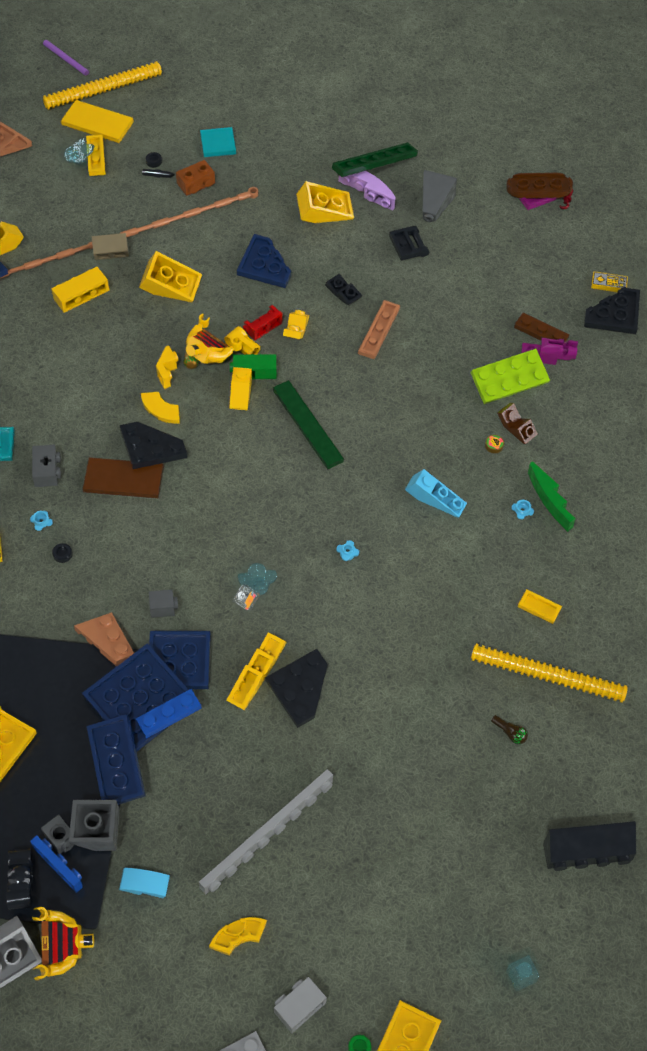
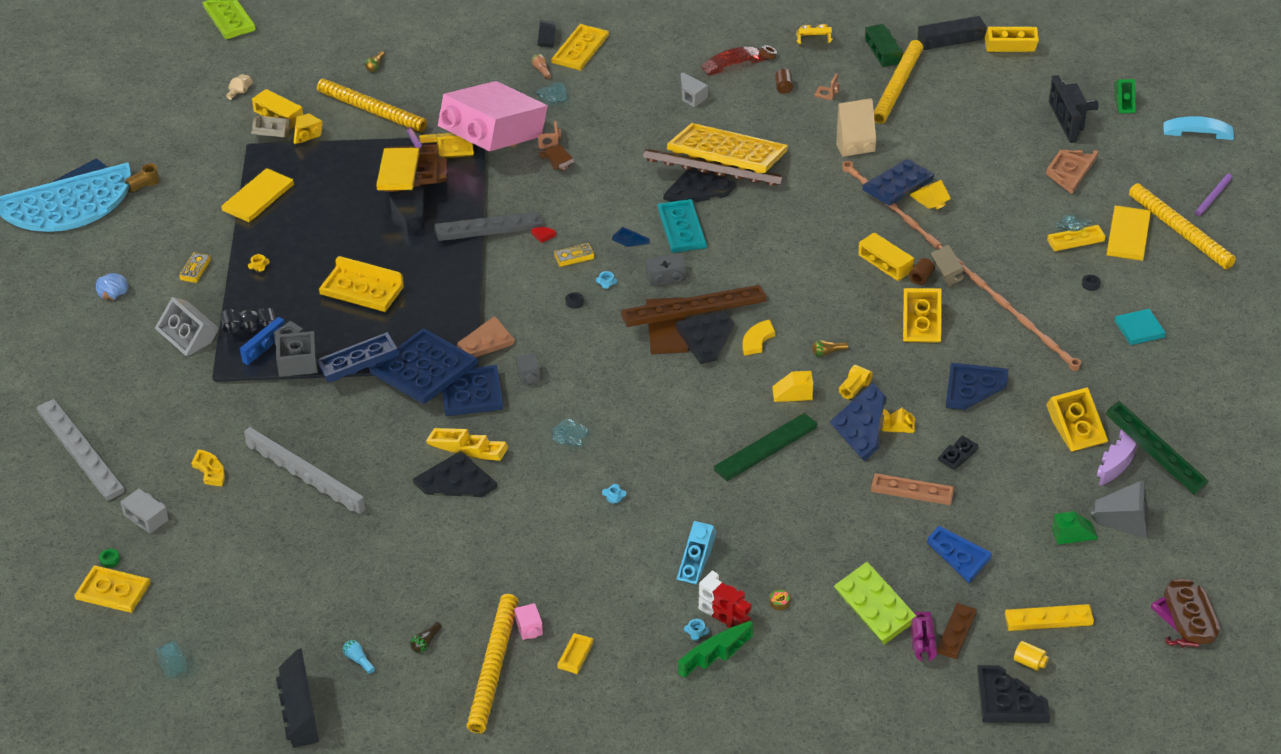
camera: 85 degrees right, 15 degrees down
(60, 942) = (196, 356): torso -> none
(109, 267) = (921, 271): none -> reddish brown brick
(111, 449) = (693, 305): none -> reddish brown plate
(144, 881) = (253, 401): medium azure slope -> none
(157, 173) = (1072, 288): black piece -> none
(166, 364) = (811, 329): yellow slope -> none
(168, 713) = (406, 381): blue plate -> none
(195, 177) = (1073, 314): dark orange brick -> none
(206, 346) = (838, 349): yellow torso -> none
(246, 597) = (545, 425): clear tile -> none
(262, 365) = (825, 394): green brick -> none
(264, 323) = (894, 400): red hinge -> none
(301, 344) = (862, 421): none -> dark blue plate
(404, 244) = (1045, 494): black plate -> none
(446, 236) = (1072, 528): none -> green slope
(460, 311) = (959, 553): none -> blue wing
(504, 481) = (723, 601): none -> red hips
(504, 637) = (528, 621): none -> bright pink brick
(521, 428) = (815, 612): reddish brown slope -> none
(523, 795) = (354, 651): none -> medium azure piece
(533, 271) = (1049, 617): none -> yellow plate
(576, 289) = (1031, 656): none -> yellow brick
(608, 281) = (1057, 691): tile -> none

